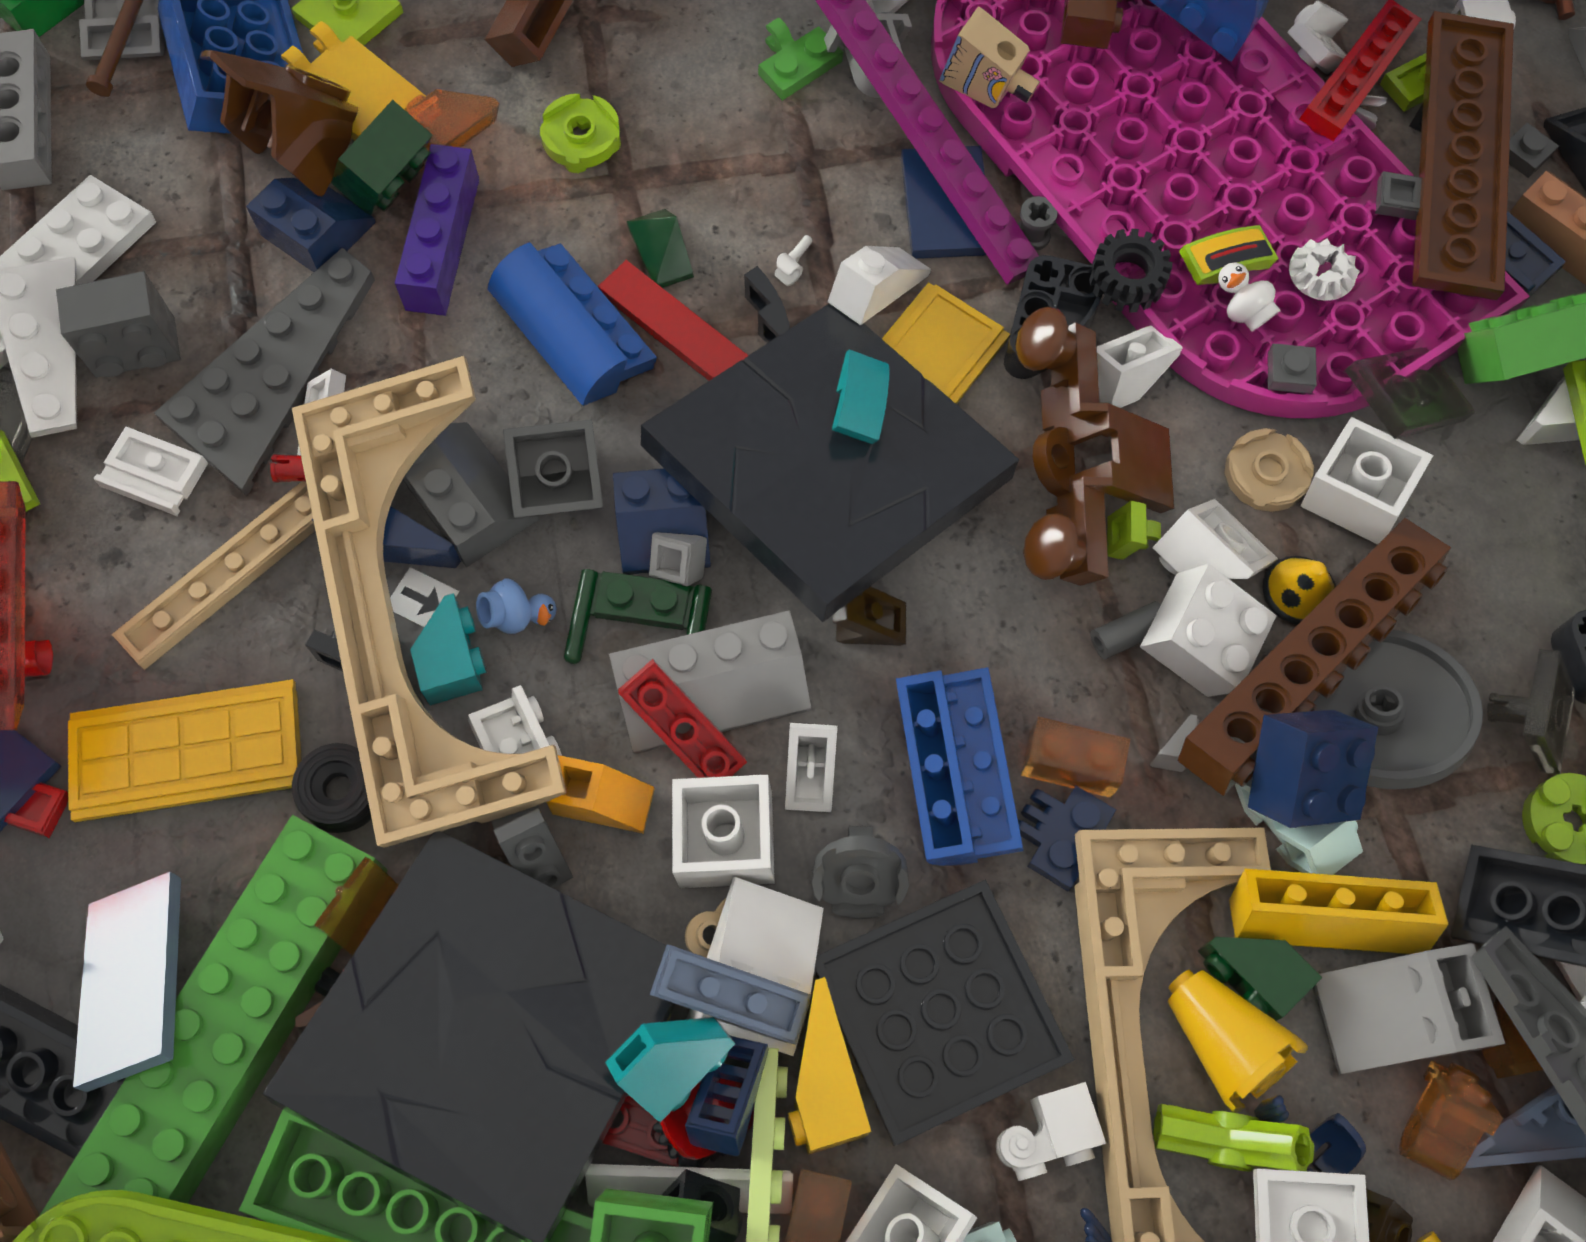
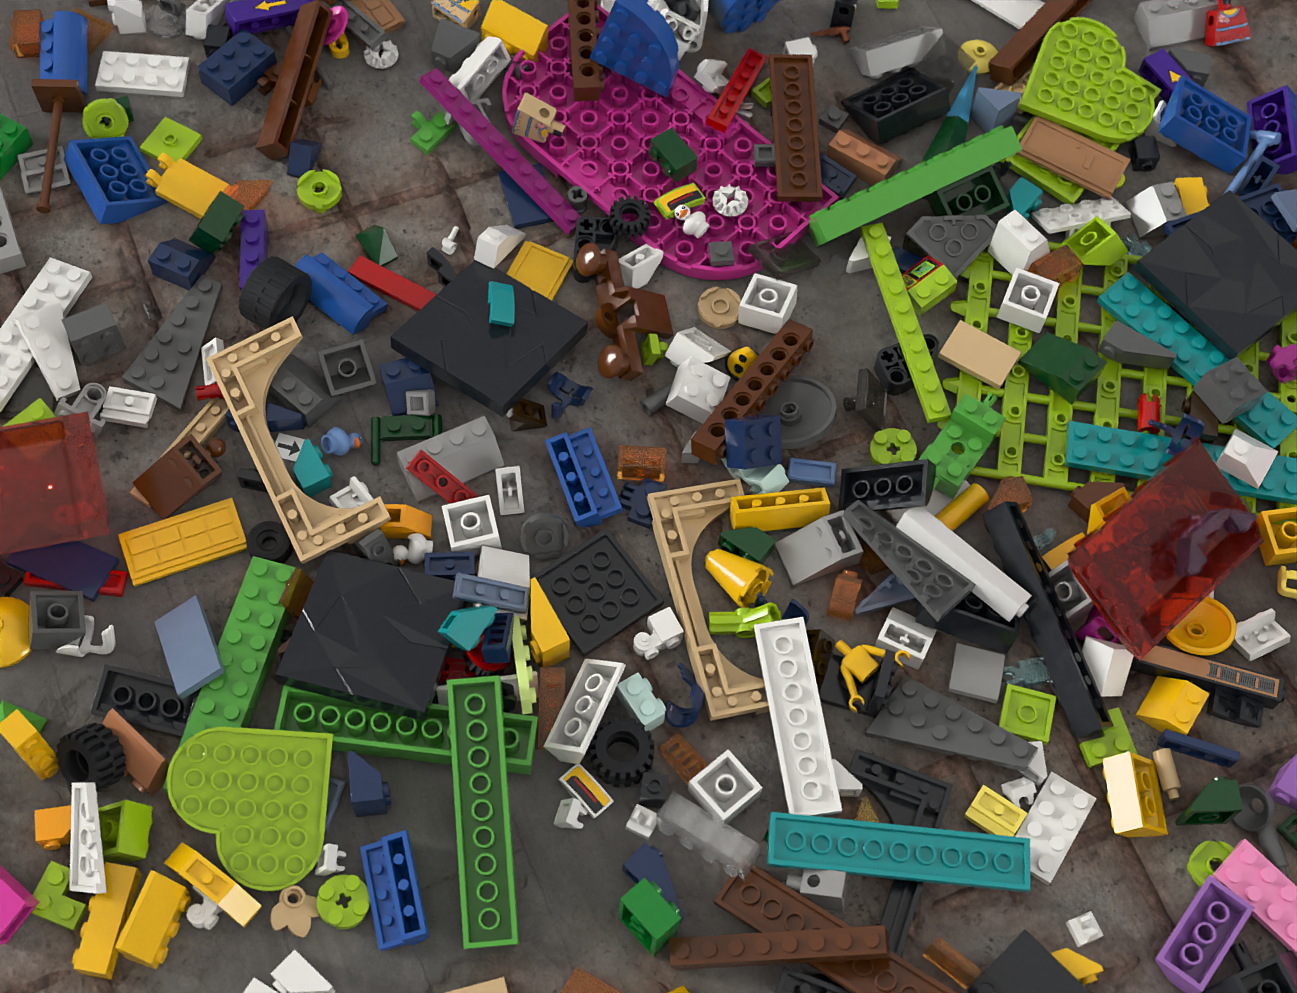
camera: 15 degrees left, 5 degrees down
(64, 465) = (84, 404): none -> light grey pin
(198, 626) = (176, 480): none -> reddish brown slope
(290, 112) = (162, 204): reddish brown piece -> none
(451, 304) = (274, 293): none -> black tyre
(564, 68) = (302, 157): none -> dark blue slope
(613, 855) = (416, 551): none -> white animal
(665, 905) = (448, 564): none -> dark blue panel
(947, 563) = (561, 382): none -> dark blue helmet
(1229, 167) = (673, 155): none -> dark green brick
(1407, 835) = (811, 472): none -> medium blue tile

